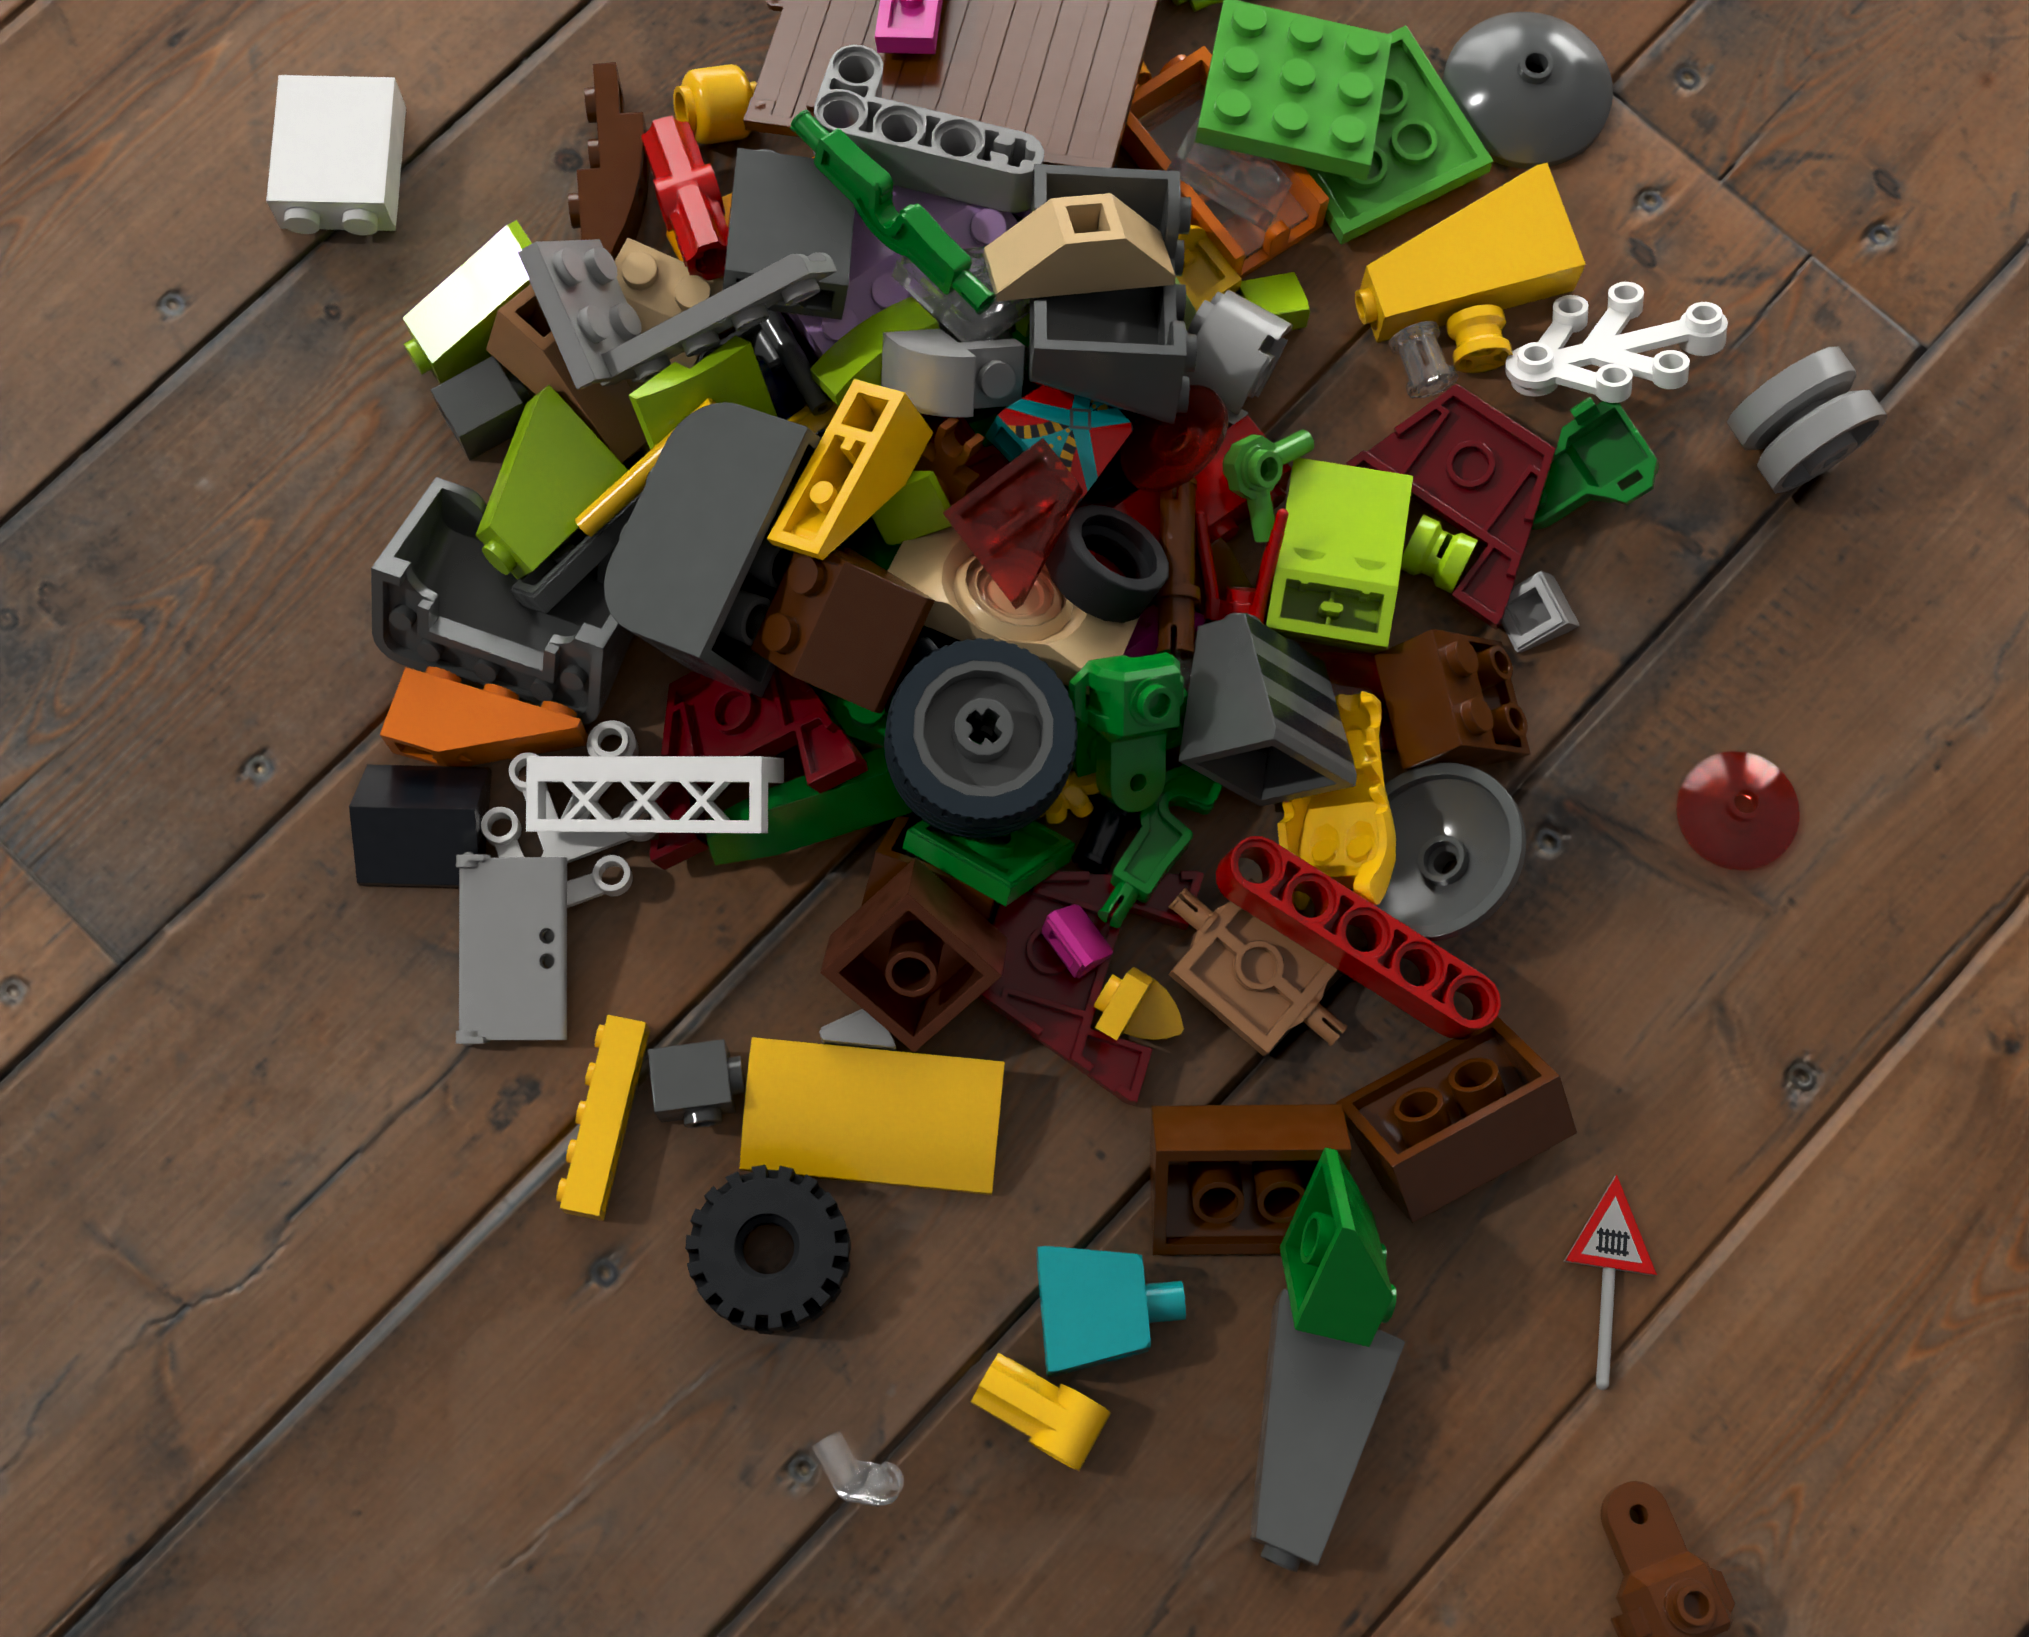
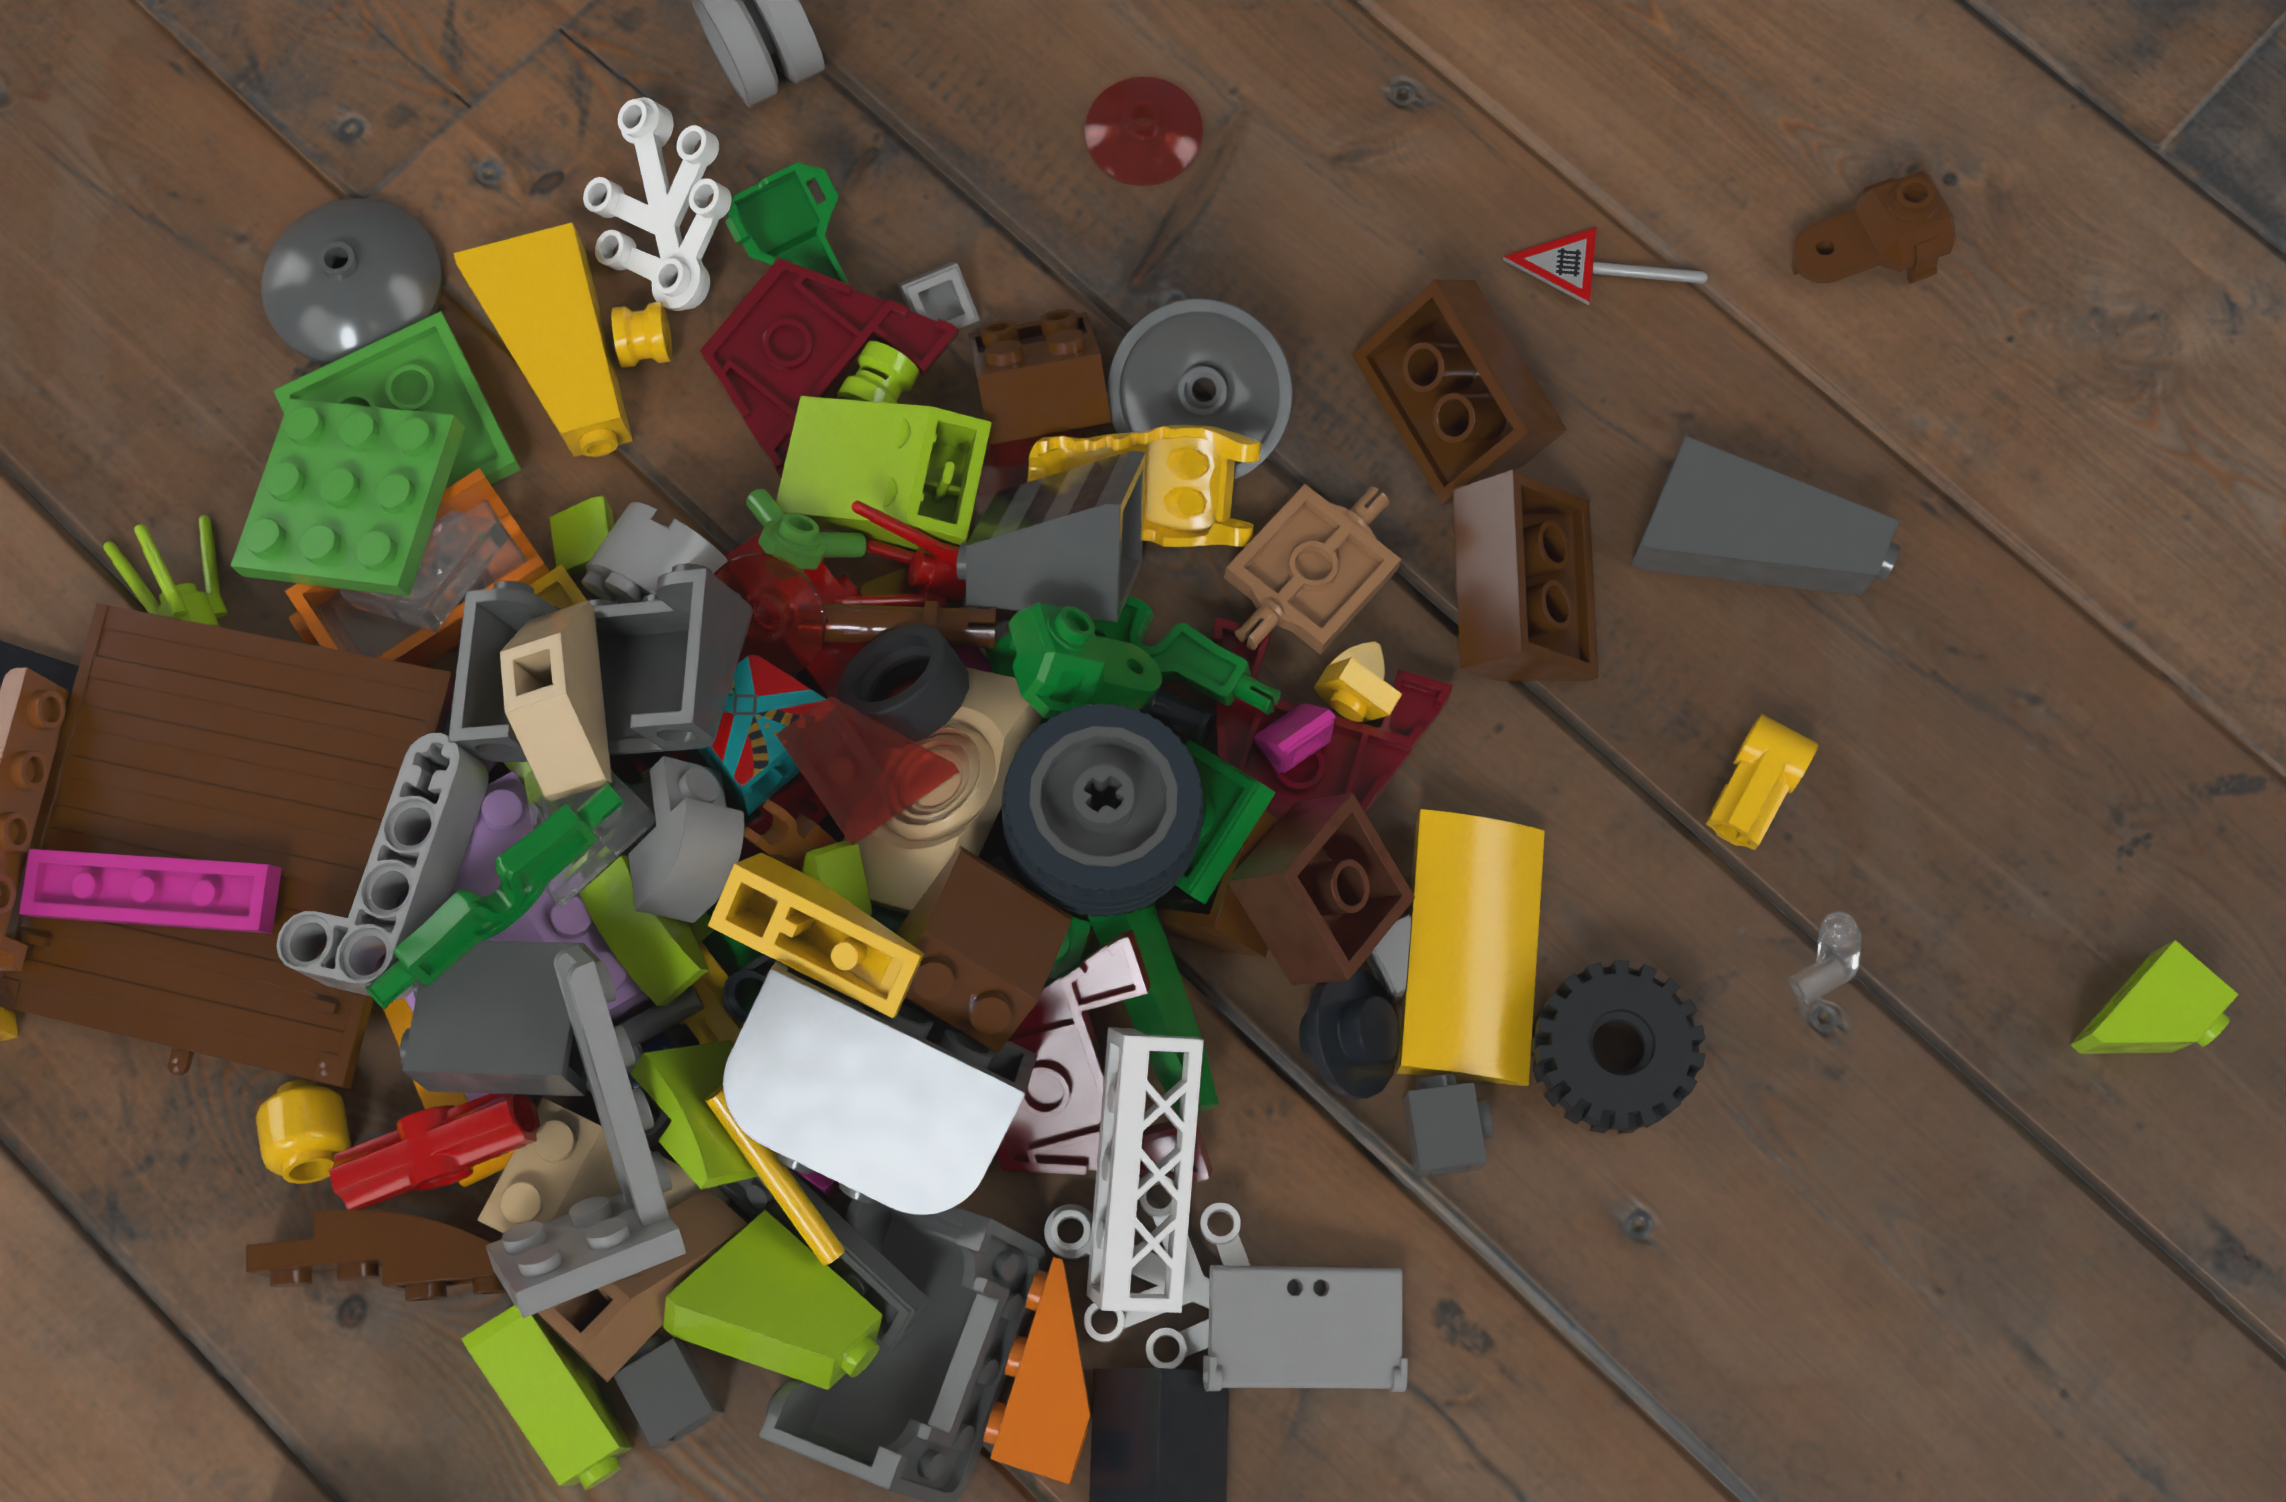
camera: 85 degrees left, 0 degrees up
(603, 1117) = (1482, 1226): yellow piece -> none
(779, 991) = (1351, 1035): none -> black piece
(1099, 1306) = (1660, 725): teal torso -> none
(1336, 1259) = (1617, 493): green slope -> none
(1386, 936) = (1286, 489): red beam -> none
(1417, 341) = (661, 390): clear bush -> none

